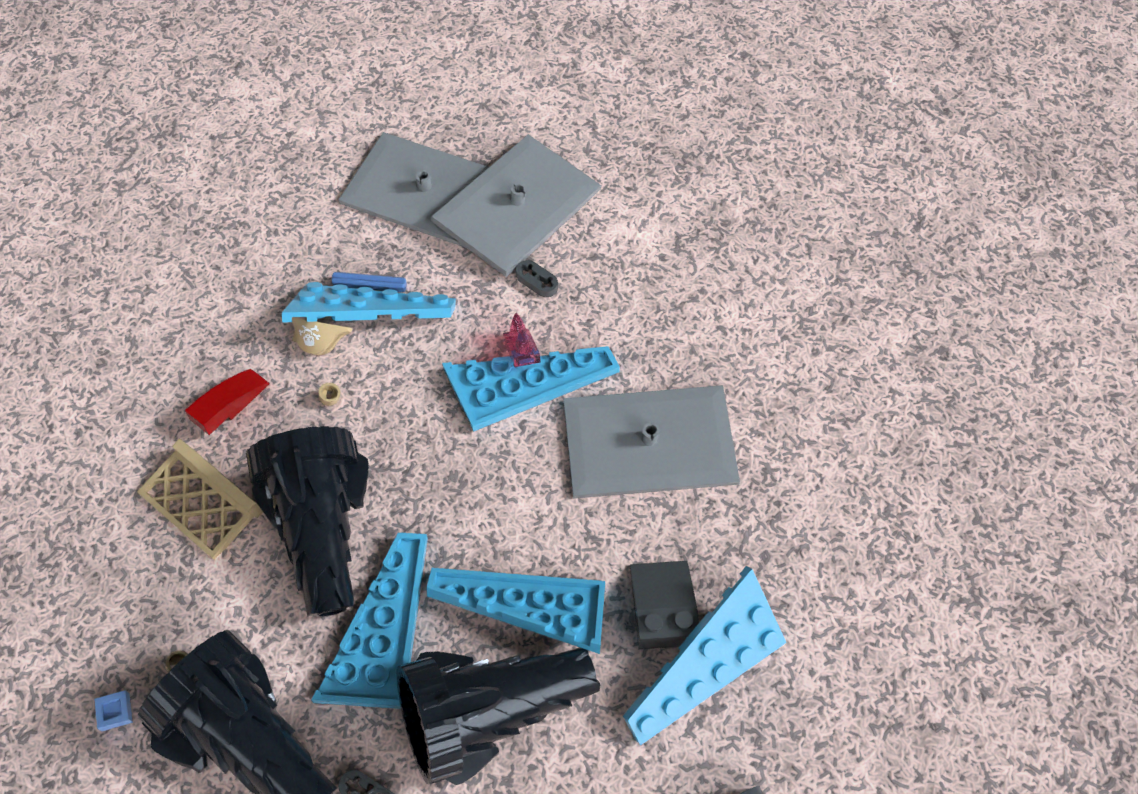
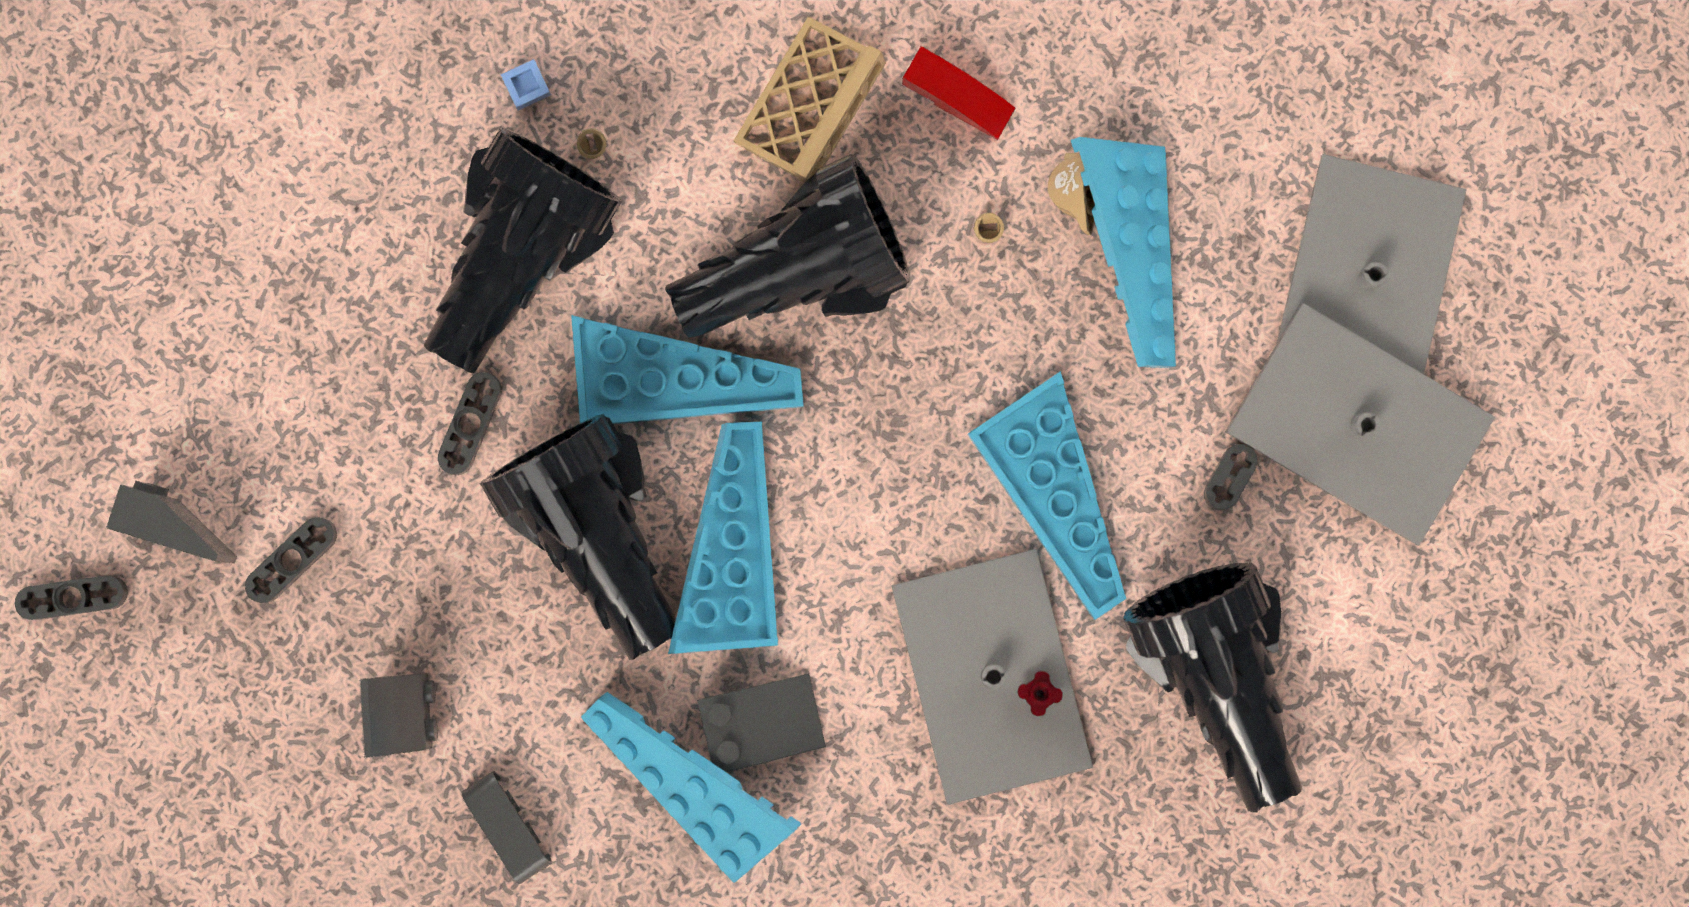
camera: 80 degrees right, 25 degrees up
(375, 282) = (1184, 235): medium blue axle -> none
(521, 344) = (1103, 476): clear pink tile -> none
(648, 290) = (1214, 645): none -> black cone
(663, 412) = (1029, 693): none -> dark red plate

